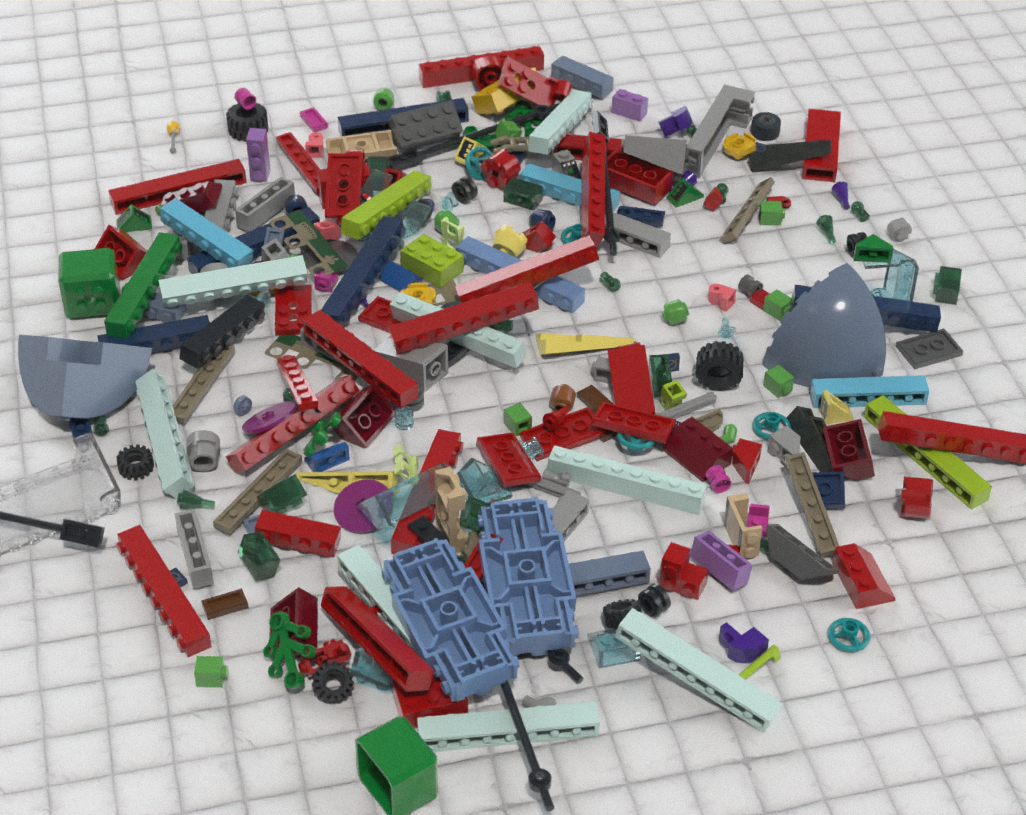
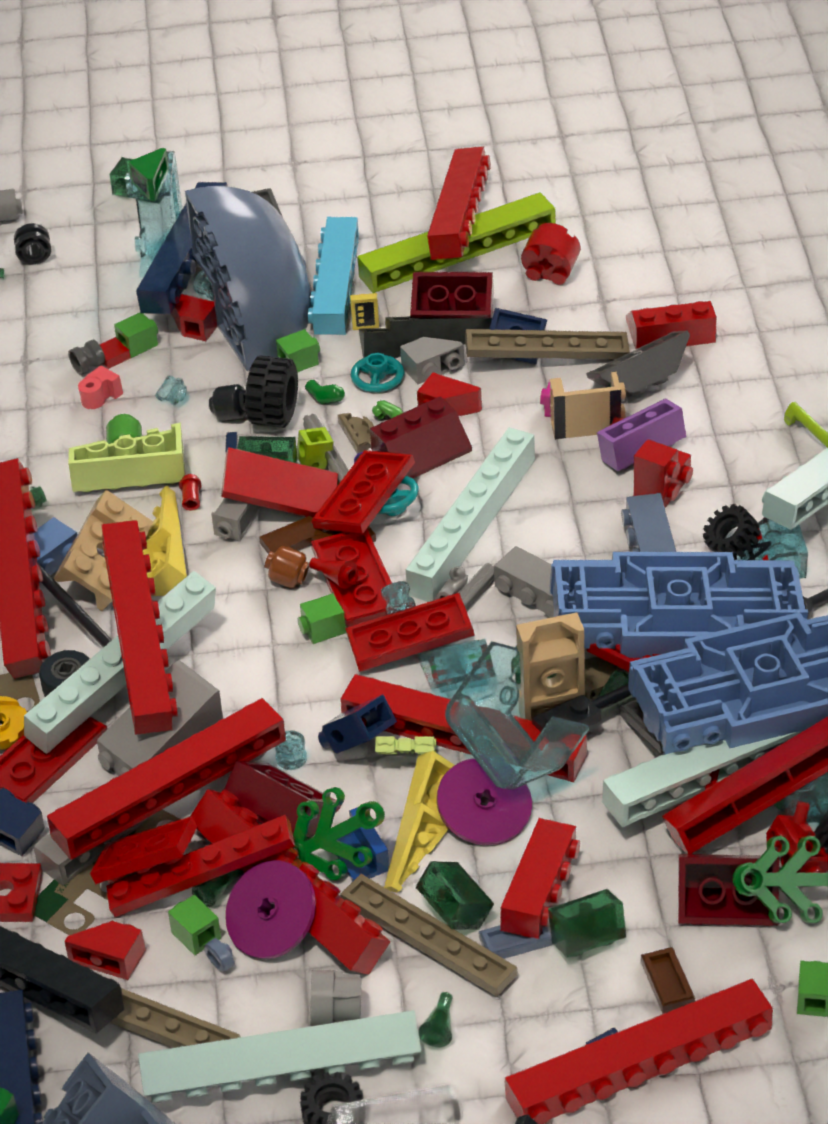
camera: 80 degrees left, 0 degrees up
(194, 548) = (561, 1007): light grey brick -> none
(246, 362) = (107, 948): none -> red slope
(264, 392) = (194, 924): none -> bright green brick
(309, 359) = (143, 851): none -> red plate
(414, 437) = (349, 730): none -> dark blue torso
(506, 325) = (102, 618): clear green pin -> none
(579, 317) = (83, 561): none -> tan piece
(648, 318) = (128, 461): none -> yellowish green wedge
(654, 600) = (704, 501): black wheel -> none
(719, 480) = (481, 427): dark pink wheel -> none
(740, 401) = (324, 394): none -> green arm
(743, 647) = (780, 436): dark purple brick -> none
(849, 632) = (762, 343): teal piece -> none

